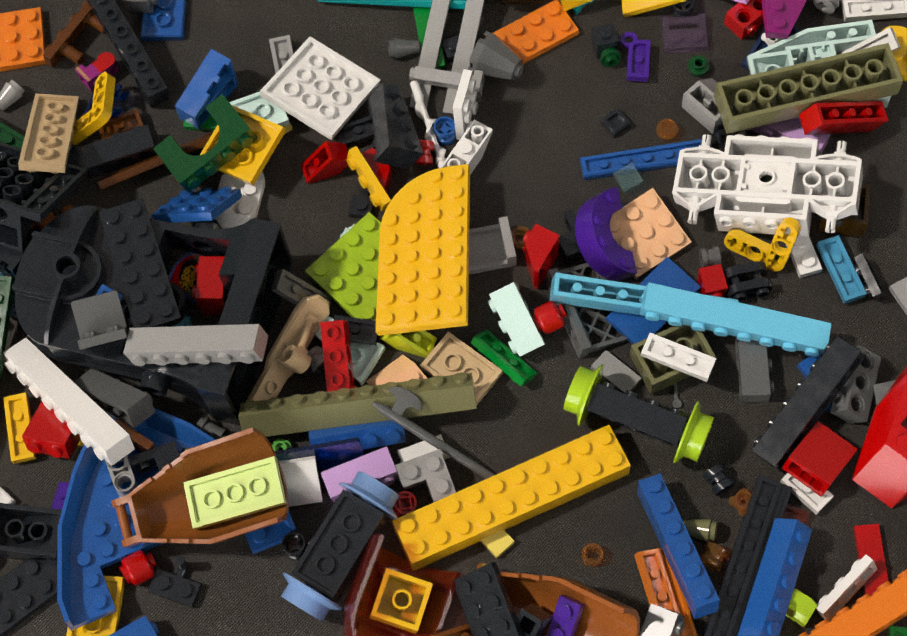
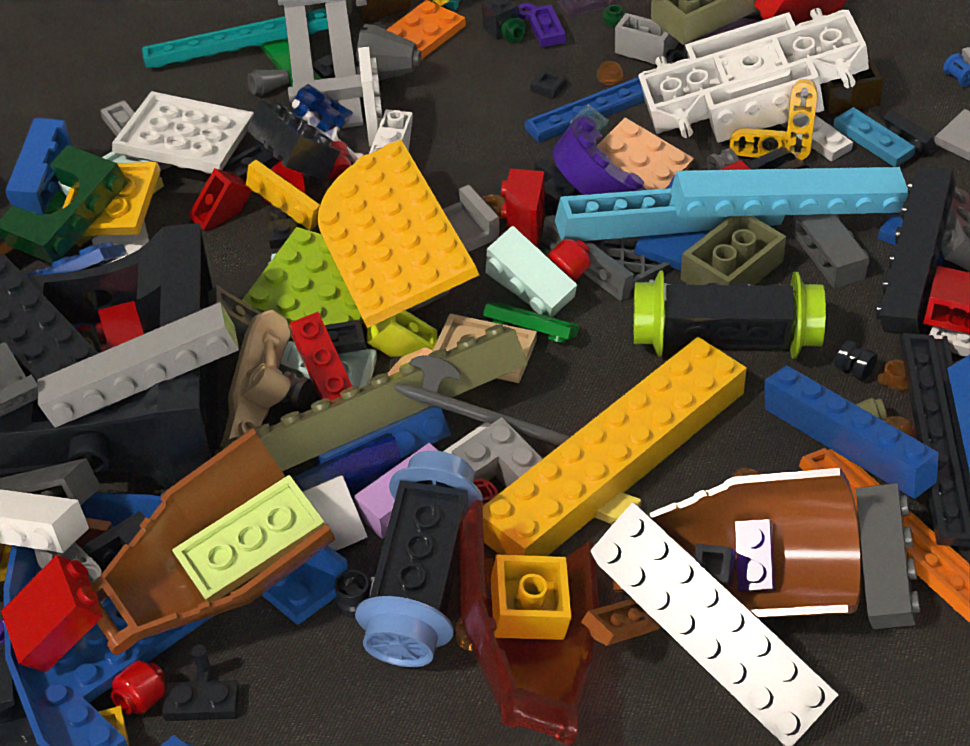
camera: 25 degrees left, 20 degrees down
(92, 509) = (51, 613): none -> red brick
(430, 96) = (315, 101): none -> clear blue plate
(445, 130) = (353, 133): blue wheel -> none
(678, 357) = (746, 243): white plate -> none

